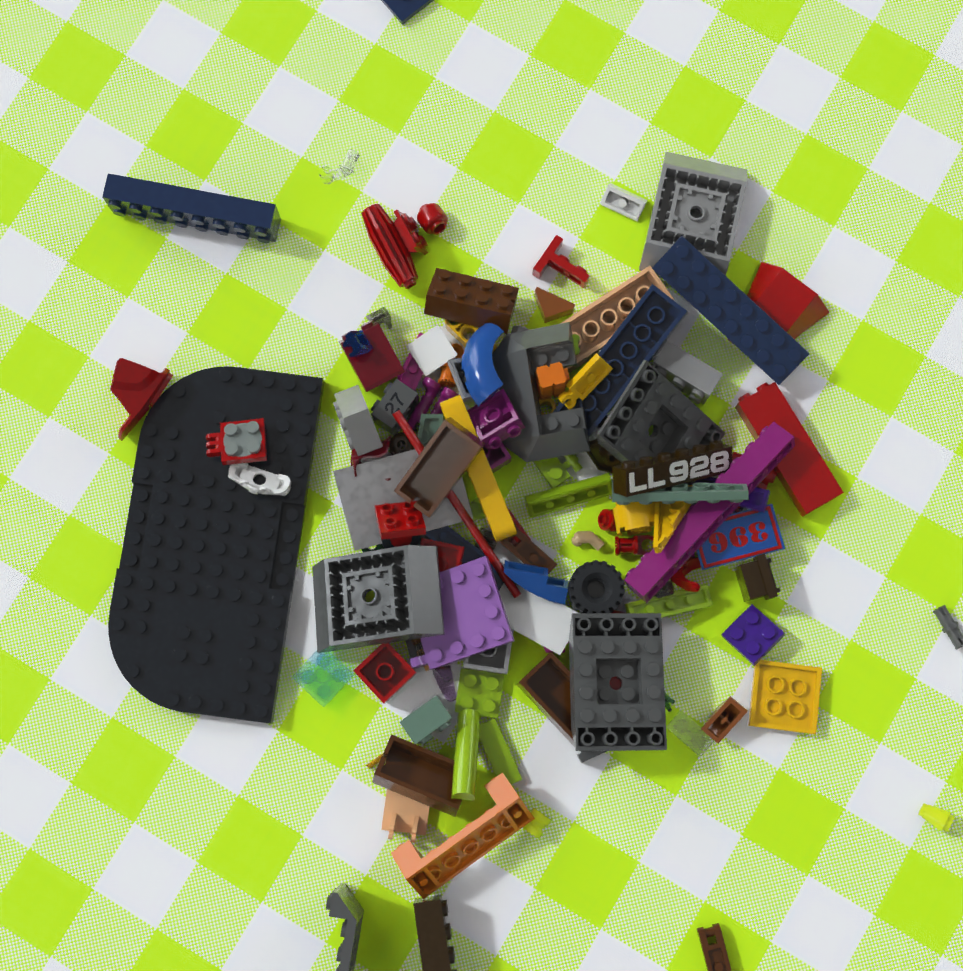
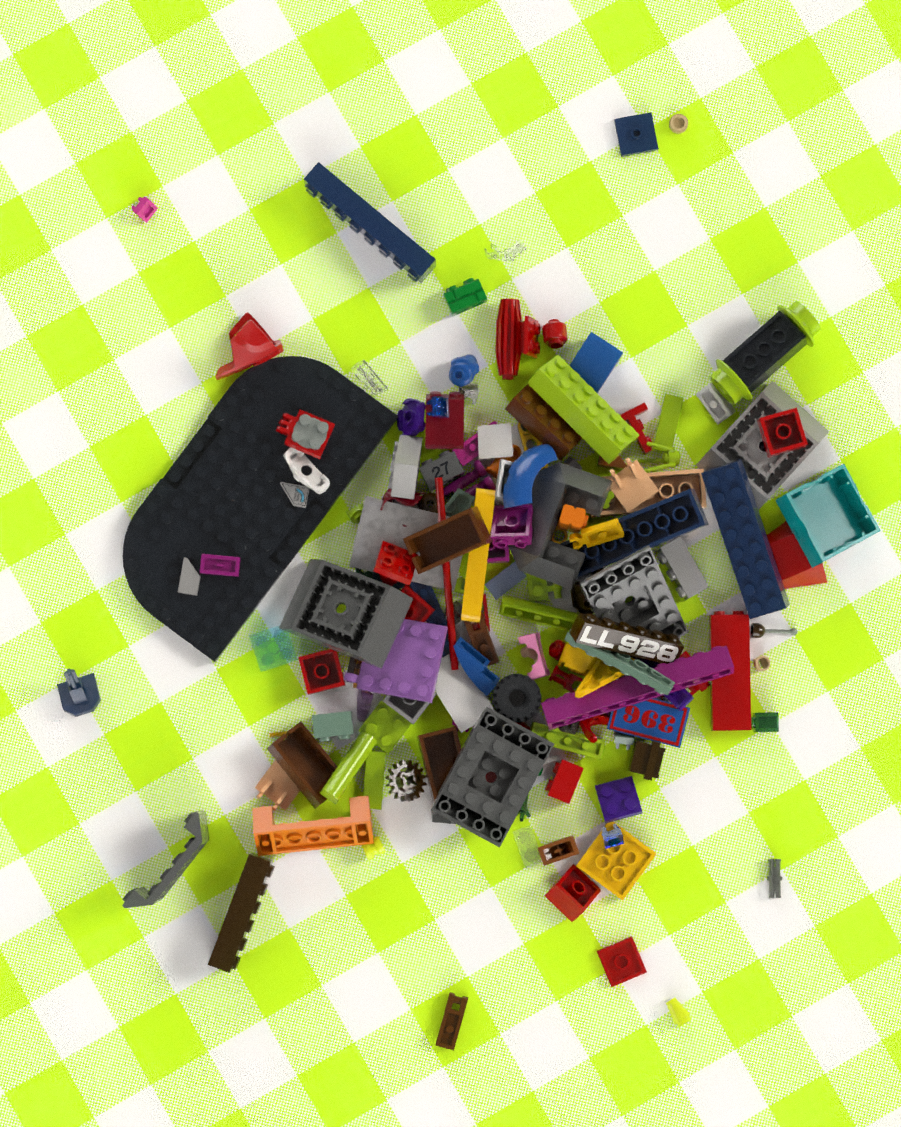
camera: 30 degrees right, 5 degrees up
(149, 835) = (79, 694): none -> dark blue piece
(199, 653) = (189, 579): none -> light grey tile
(222, 621) = (220, 565): none -> magenta plate
(262, 508) = (296, 493): none -> light grey sticker
(267, 355) = (370, 378): none -> clear plate
(325, 230) = (465, 297): none -> green brick
(332, 497) = (355, 513): none -> lime plate
(337, 371) = (411, 417): none -> dark purple plate
(362, 300) = (463, 370): none -> blue head
(486, 225) = (596, 361): none -> blue slope
(501, 270) = (583, 409): none -> lime brick
(518, 481) = (505, 581): none -> sand blue tile
(525, 742) = (413, 779): none -> dark brown gear
(589, 245) = (668, 421): none -> lime tile
(591, 317) = (632, 485): none -> light nougat plate
(601, 547) = (540, 667): none -> bright pink piece
(611, 275) = (669, 458): none -> lime plant
(644, 125) = (764, 352): none -> black brick
(690, 646) = (564, 781): none -> red brick
(707, 186) = (782, 432): none -> red brick
(723, 571) = (621, 738): none -> sand green tile
(762, 755) = (572, 893): none -> red slope
(770, 676) = (613, 837): none -> clear blue tile
(792, 393) = (759, 630): none -> hinge
(795, 245) = (827, 515): none -> teal tile
(813, 423) = (765, 663): none -> tan hinge
(849, 797) = (621, 961): none -> red tile
(852, 477) = (765, 722): none -> clear green brick

